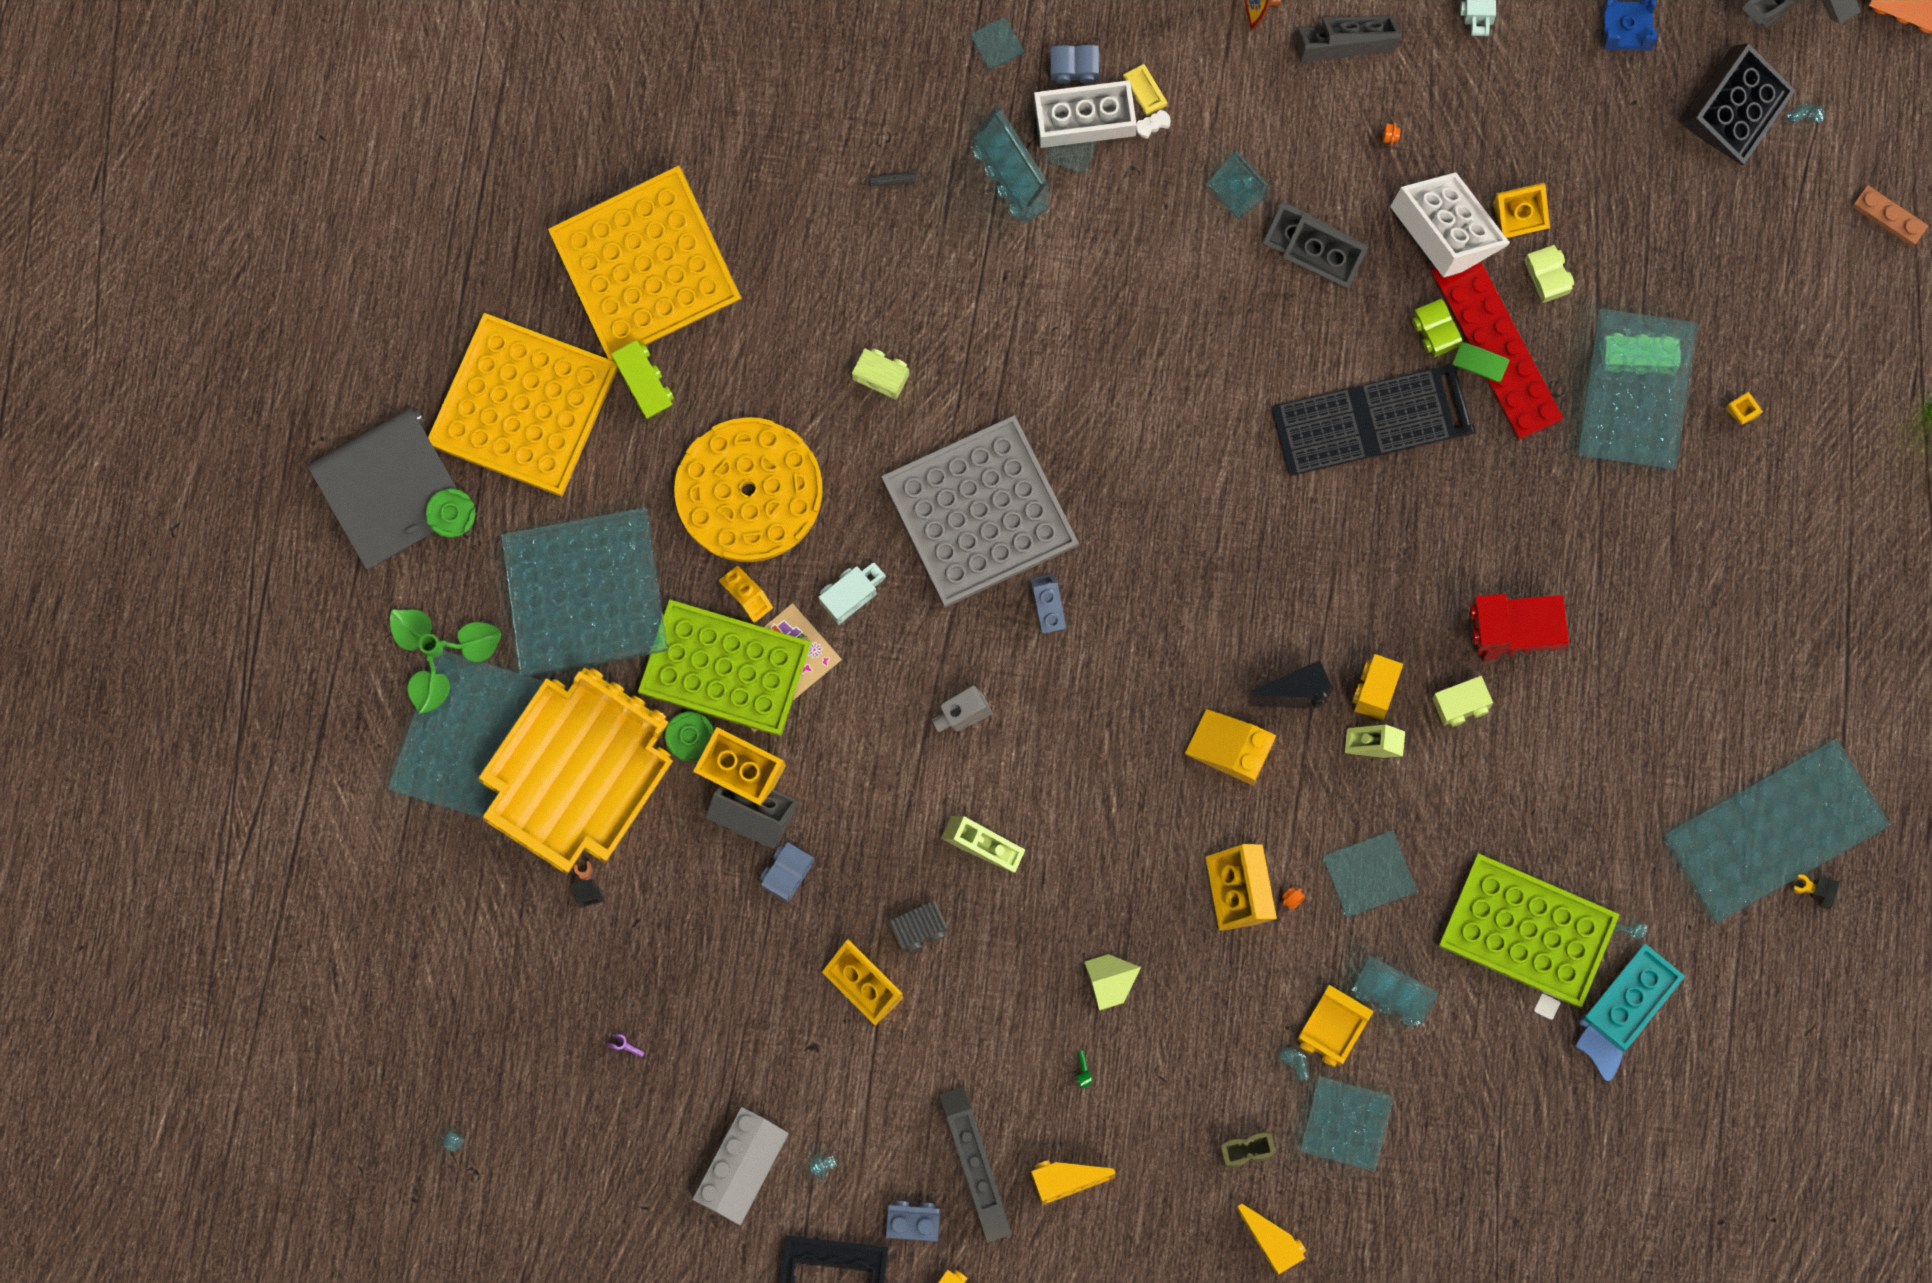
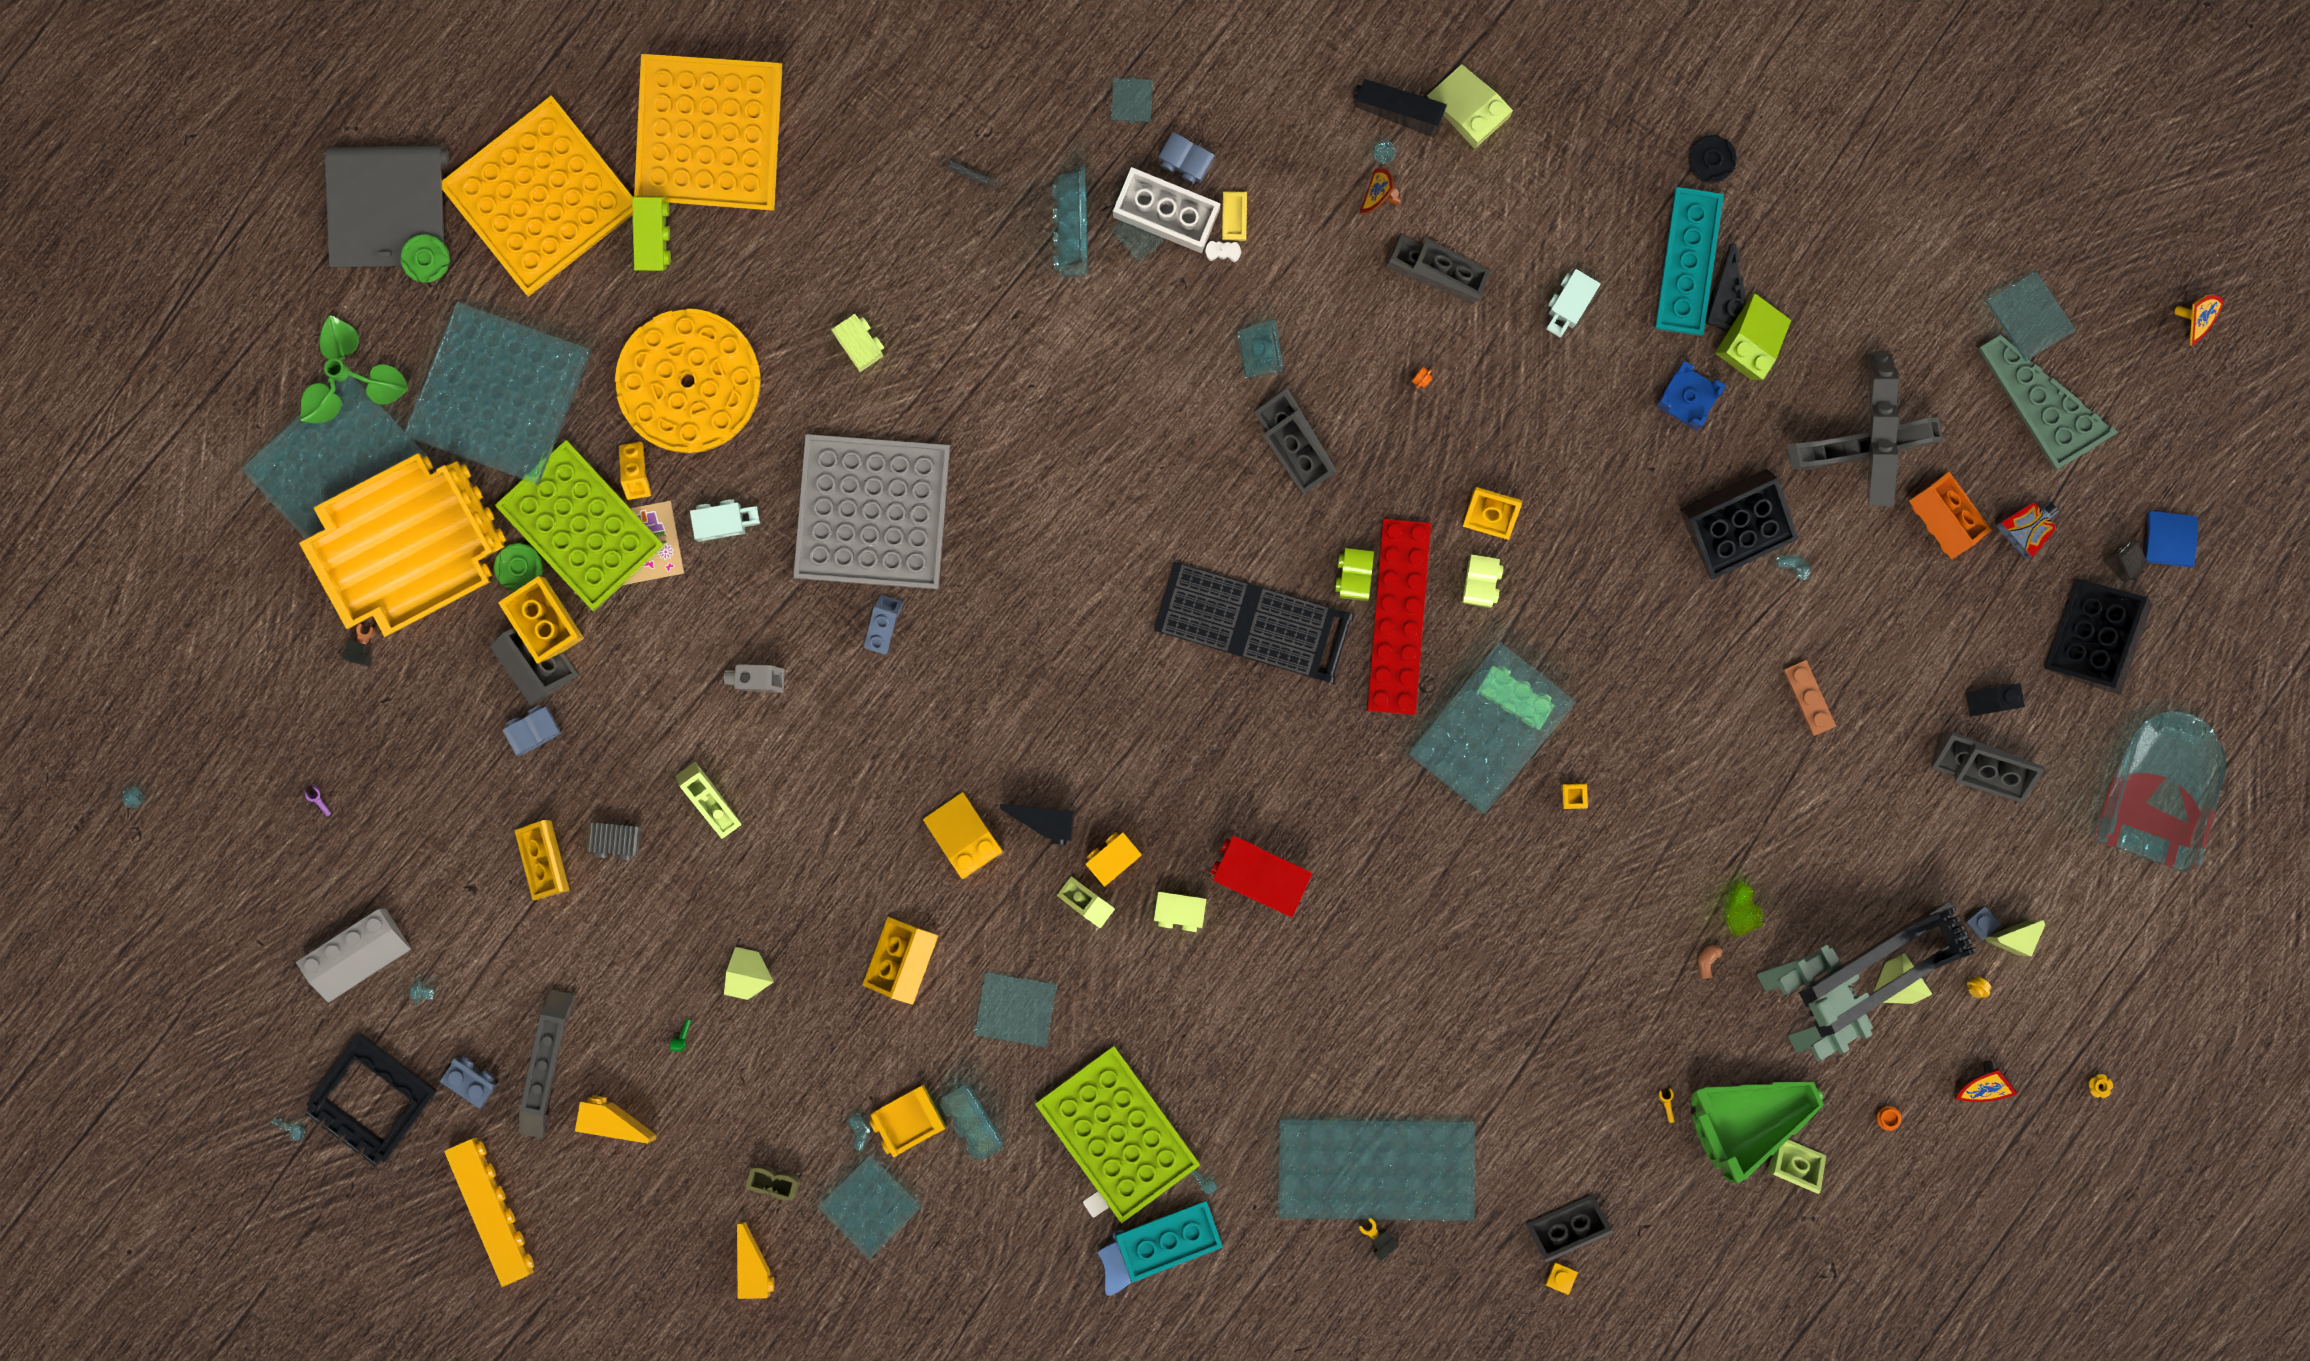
camera: 25 degrees right, 10 degrees up
(1293, 898) = (938, 994): orange plate -> none
(1448, 223) = (1421, 488): white slope -> none
(1480, 362) = (1372, 627): bright green slope -> none

